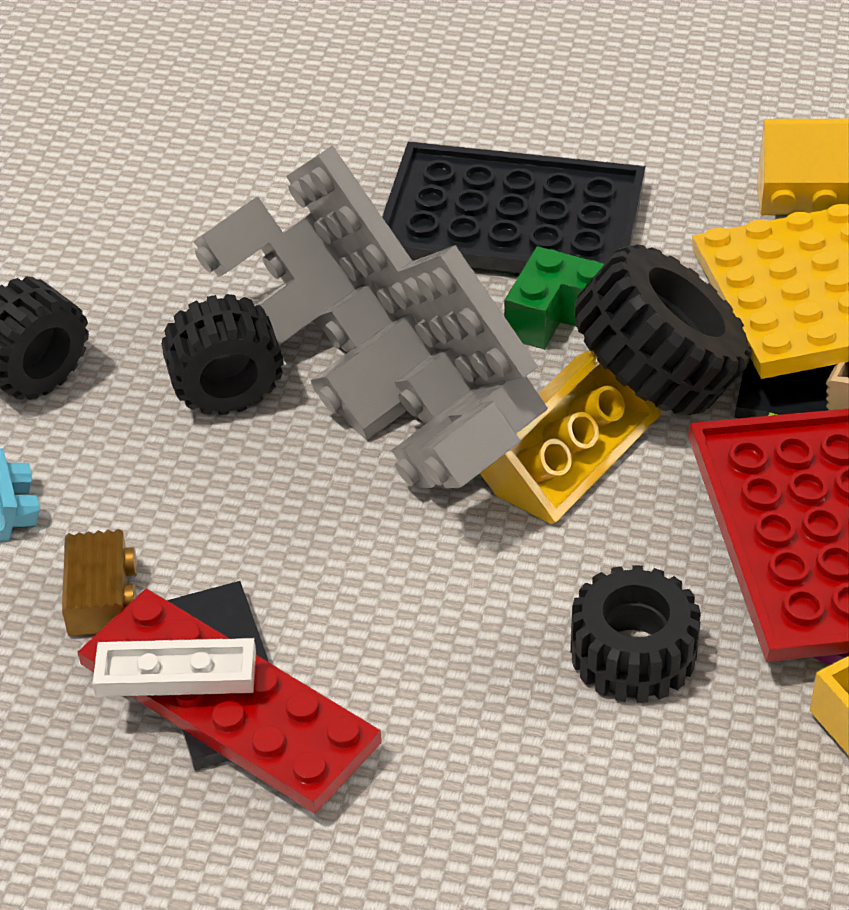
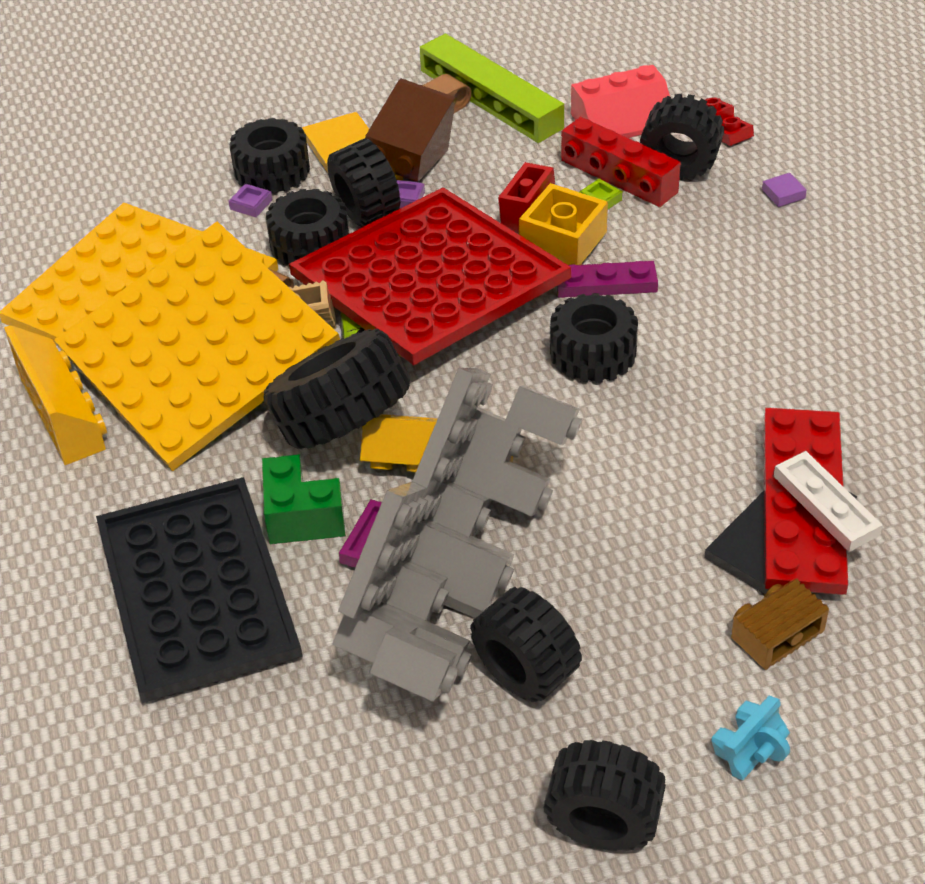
camera: 120 degrees left, 0 degrees up
(766, 734) = (610, 279): none -> magenta plate

